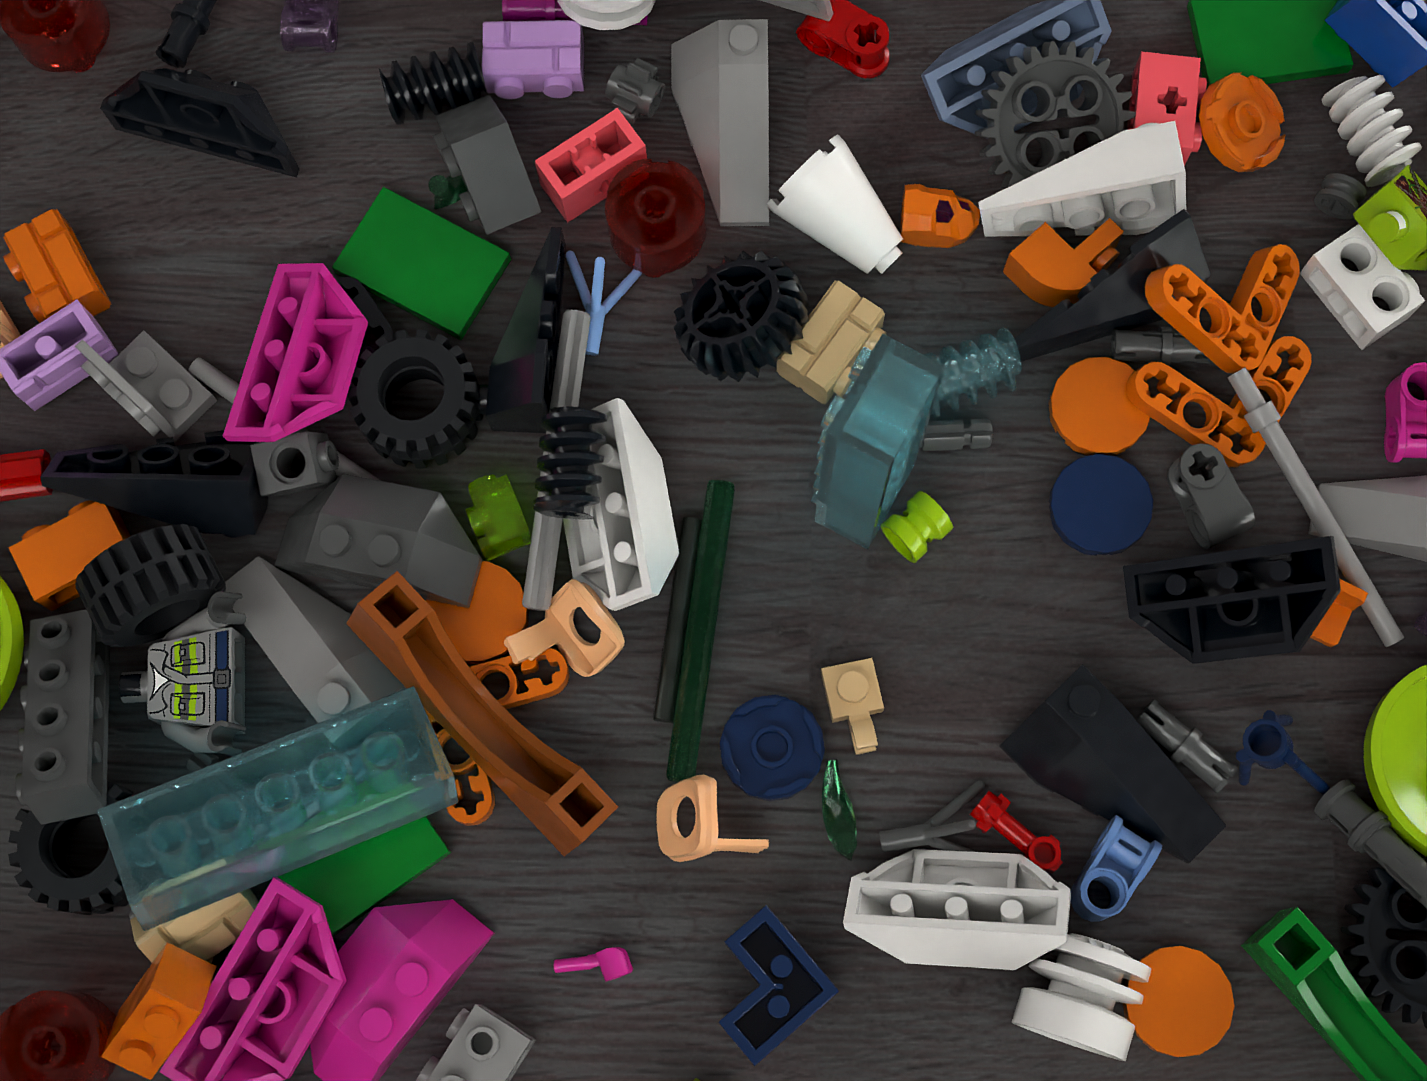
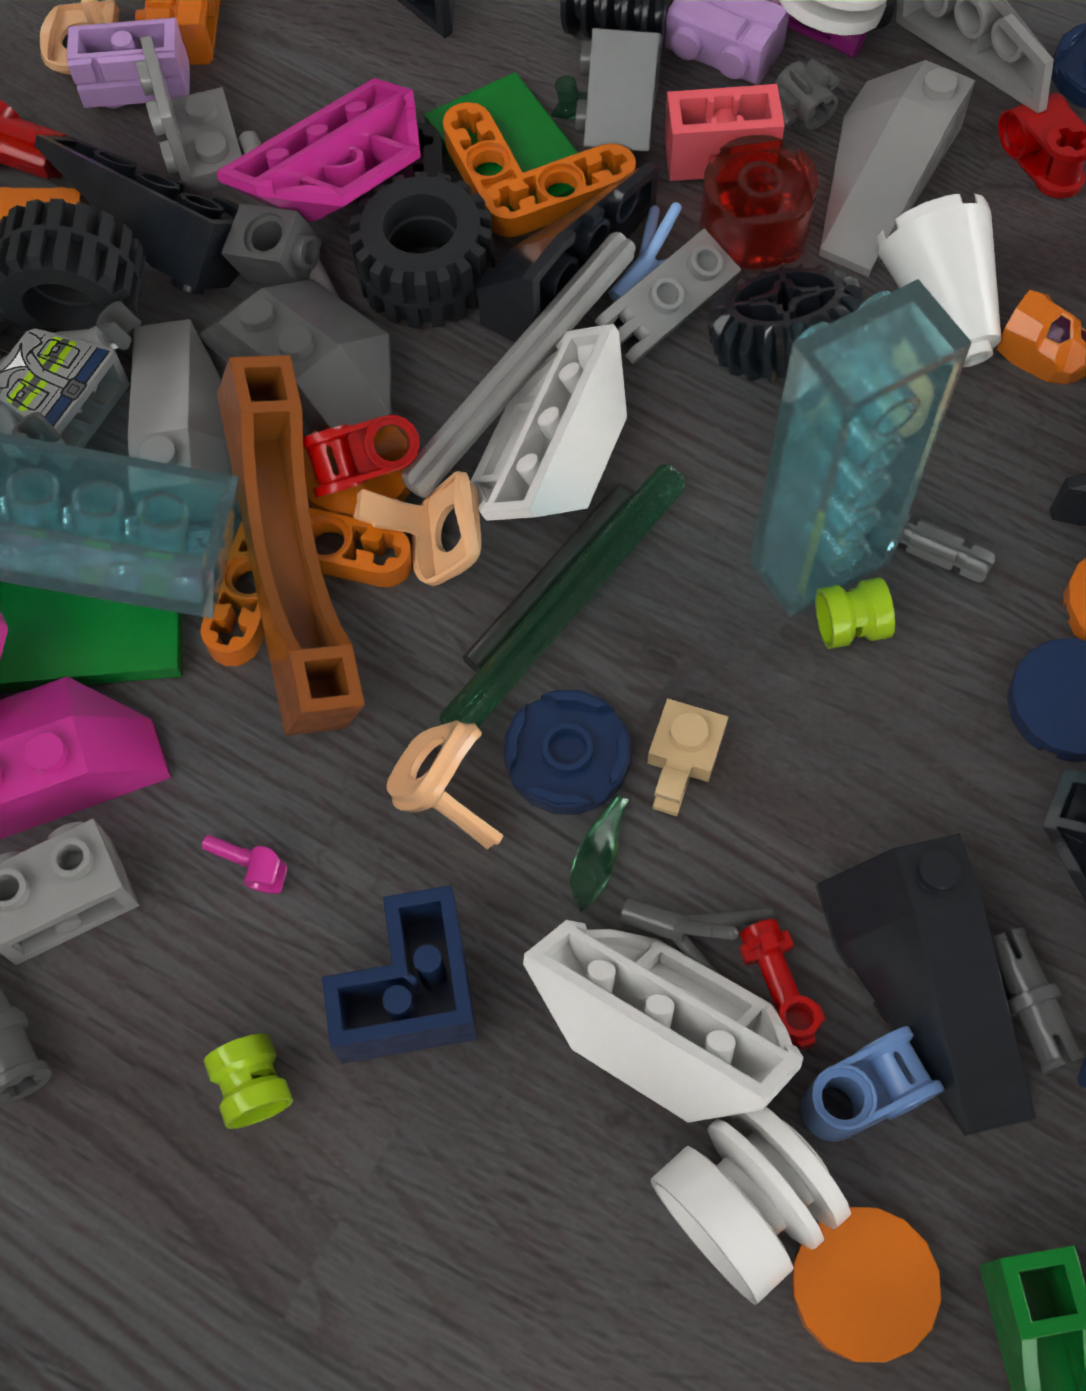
camera: 30 degrees right, 10 degrees down
(451, 301) = (516, 187): none -> orange beam
(482, 611) = (355, 453): none -> red piece
(497, 516) = (431, 387): clear neon green brick -> none
(568, 462) = (521, 353): black piece -> none
(629, 330) = (671, 293): none -> light grey hinge
(977, 367) = (998, 491): clear light blue piece -> none

